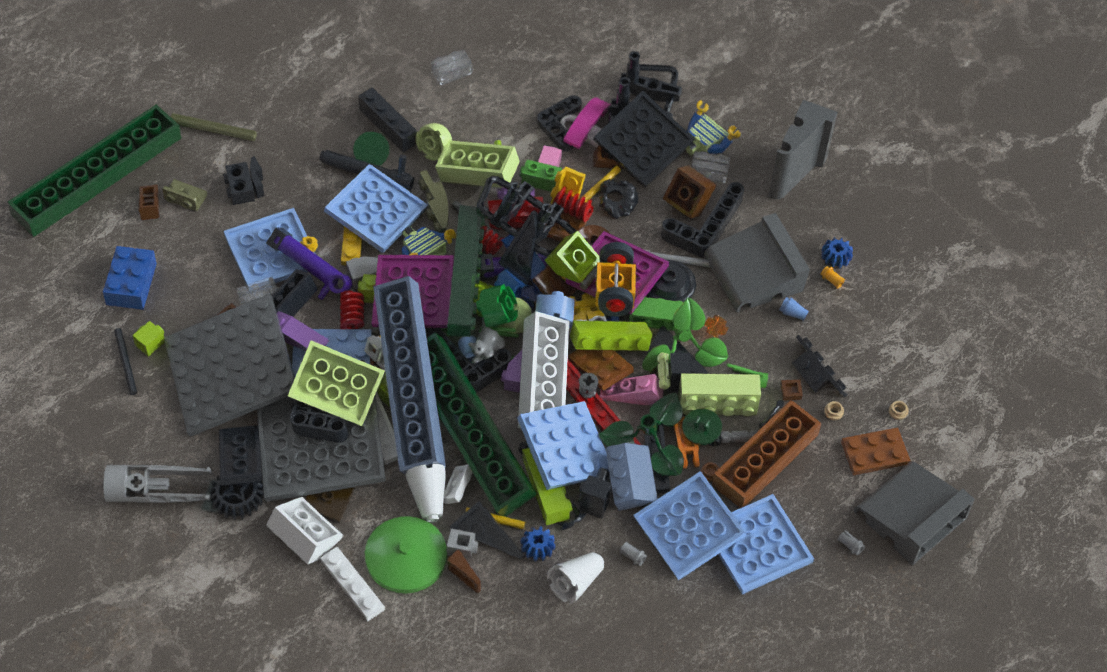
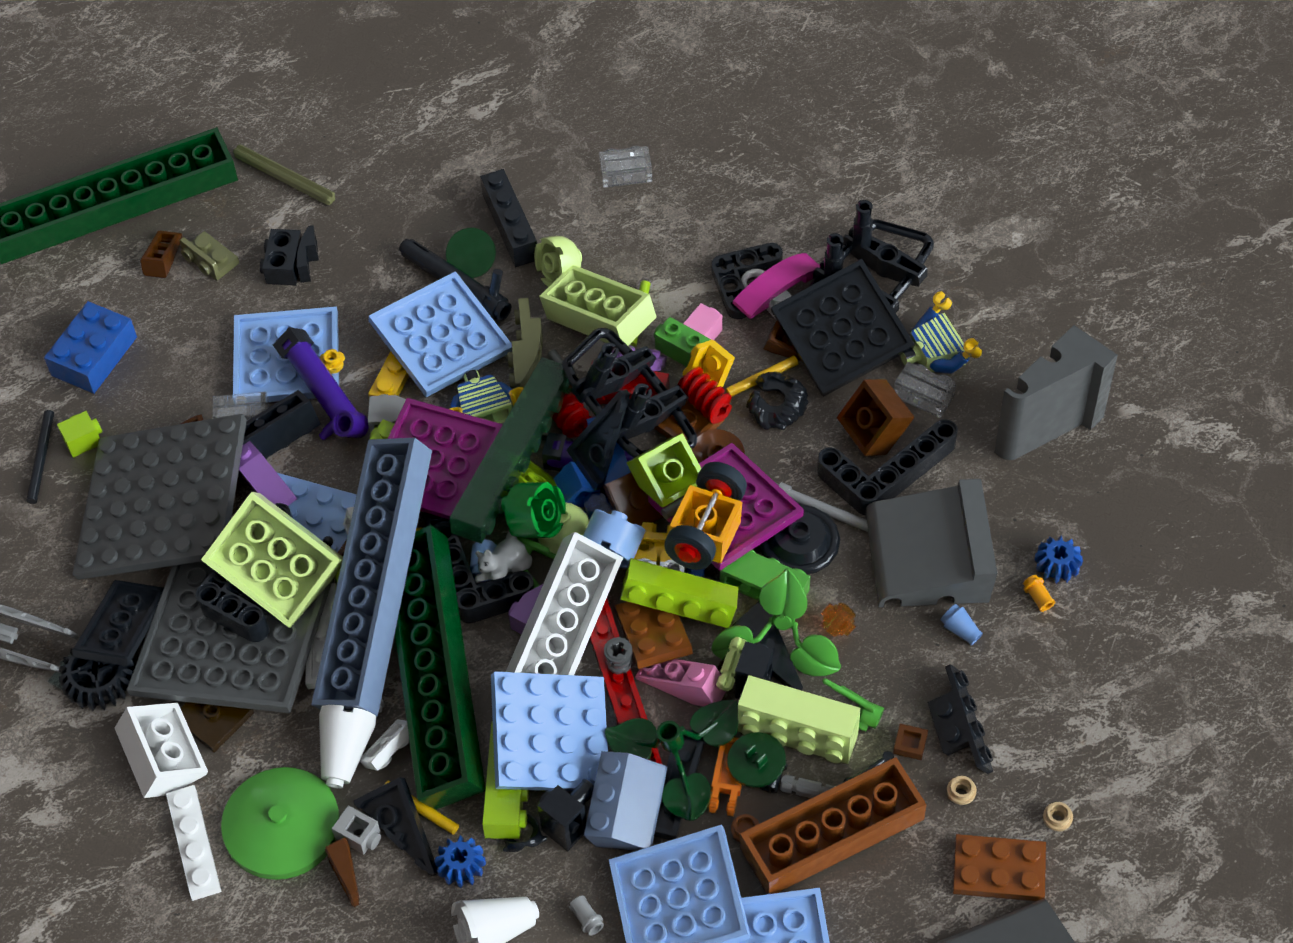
camera: 25 degrees right, 0 degrees up
(351, 310) = (348, 466): red piece -> none

